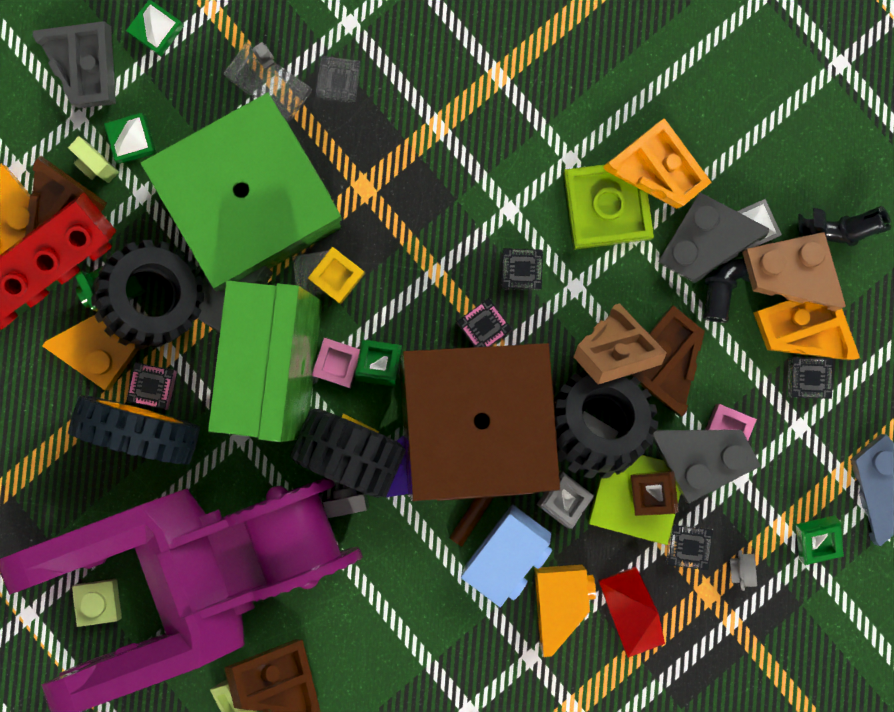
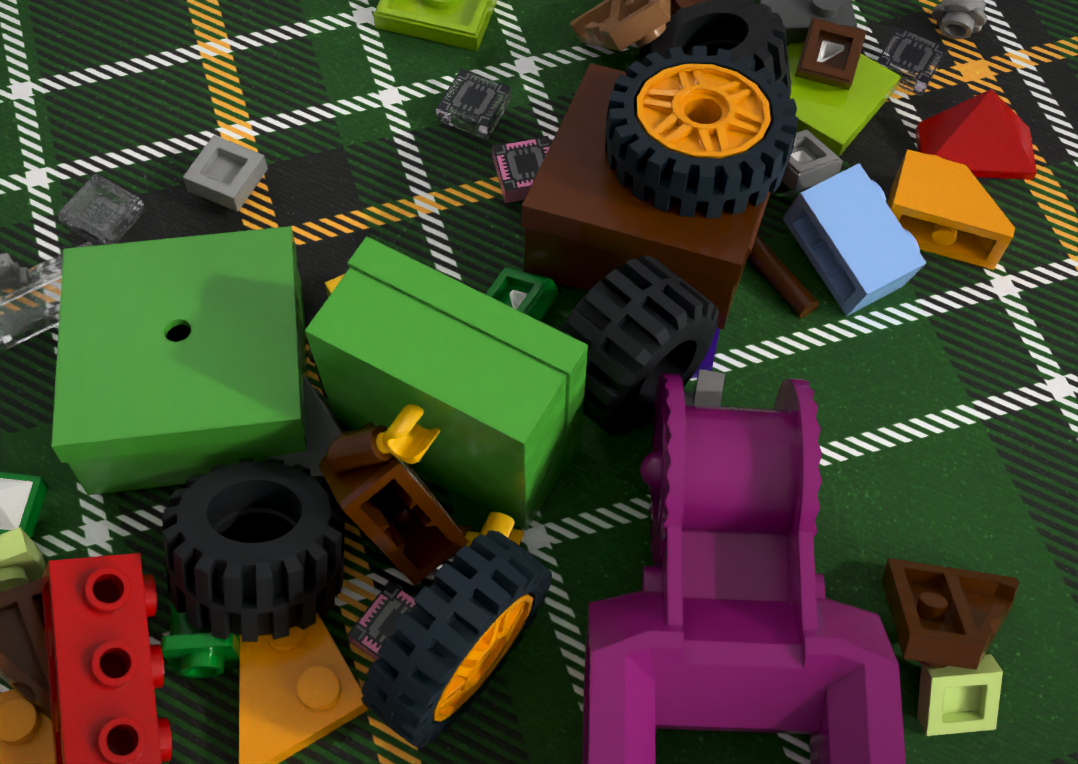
camera: 70 degrees left, 25 degrees down
(192, 358) = (392, 503): none -> reddish brown torso
(394, 141) = (225, 173): none -> light grey plate
(535, 440) = (700, 131): none -> black wheel

